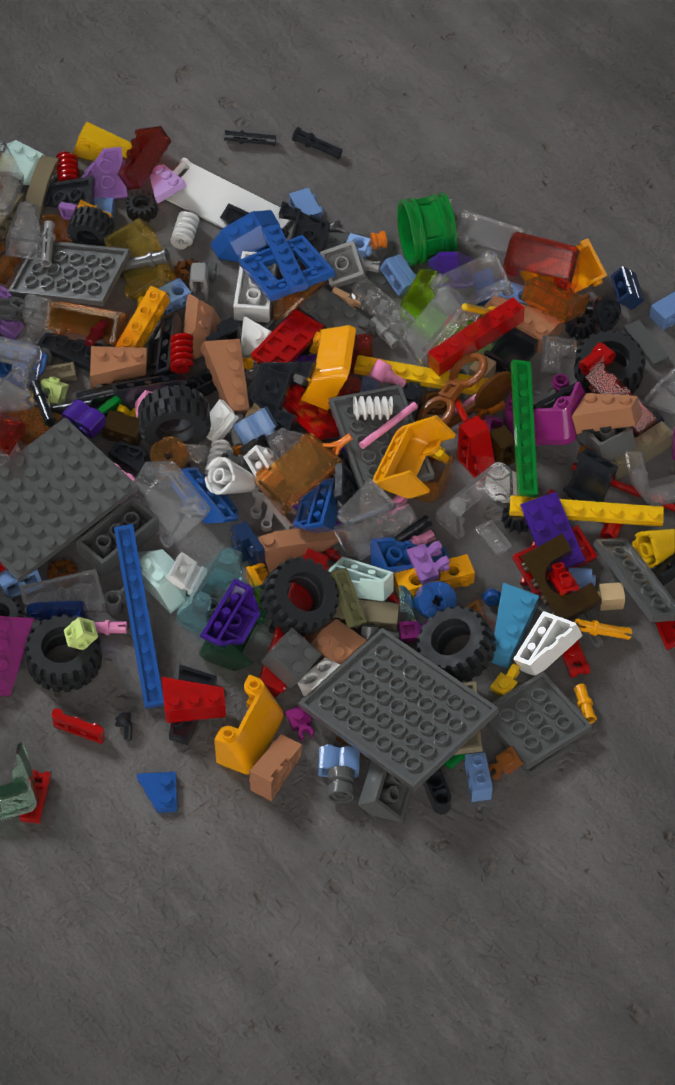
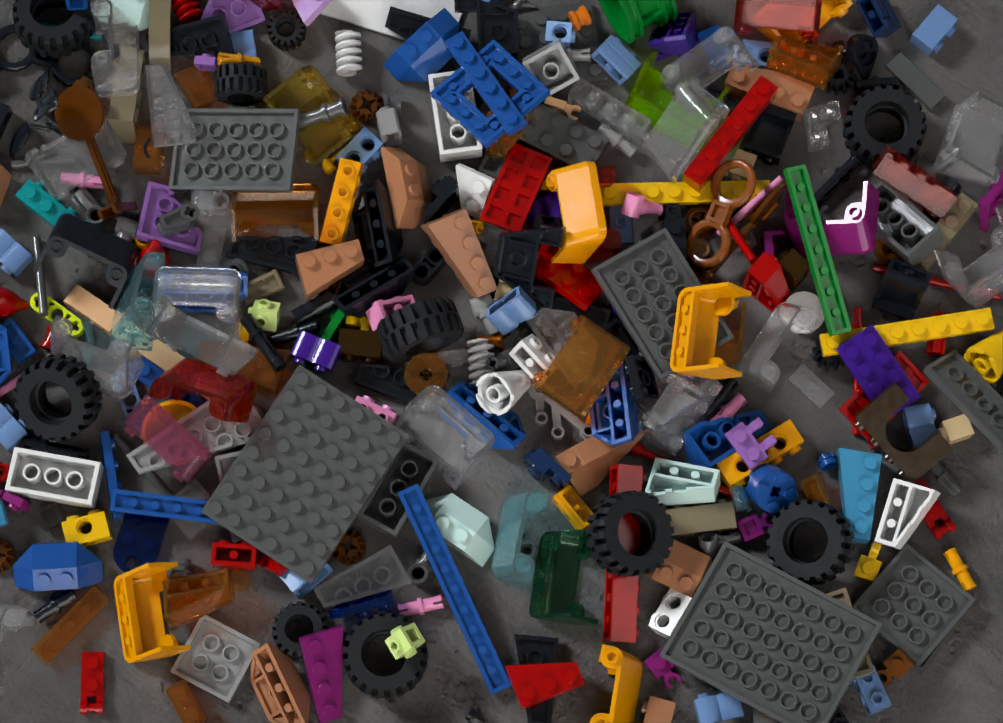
camera: 15 degrees left, 20 degrees up
(48, 238) = (195, 108): light grey pin -> none
(96, 332) = (290, 224): dark red axle -> none
(181, 353) = (401, 239): red piece -> none
(185, 573) = (489, 522): white plate -> none
(222, 420) = (470, 310): white plate -> none
(233, 616) = (561, 574): dark purple wedge -> none
(291, 657) = (638, 605): dark grey brick -> none
(339, 443) = (620, 326): orange bar -> none
(348, 598) = (681, 517): olive tile -> none
(372, 408) = (646, 273): white piece -> none
(388, 425) = (667, 288): bright pink bar -> none
(476, 309) = (736, 94): yellow piece -> none
(560, 378) = (832, 154): magenta plate -> none
(562, 579) = (906, 434): red hips -> none
(594, 627) = (951, 479): light orange pin -> none
(599, 354) = (876, 131): red piece -> none
(606, 410) = (905, 209): nougat wedge -> none

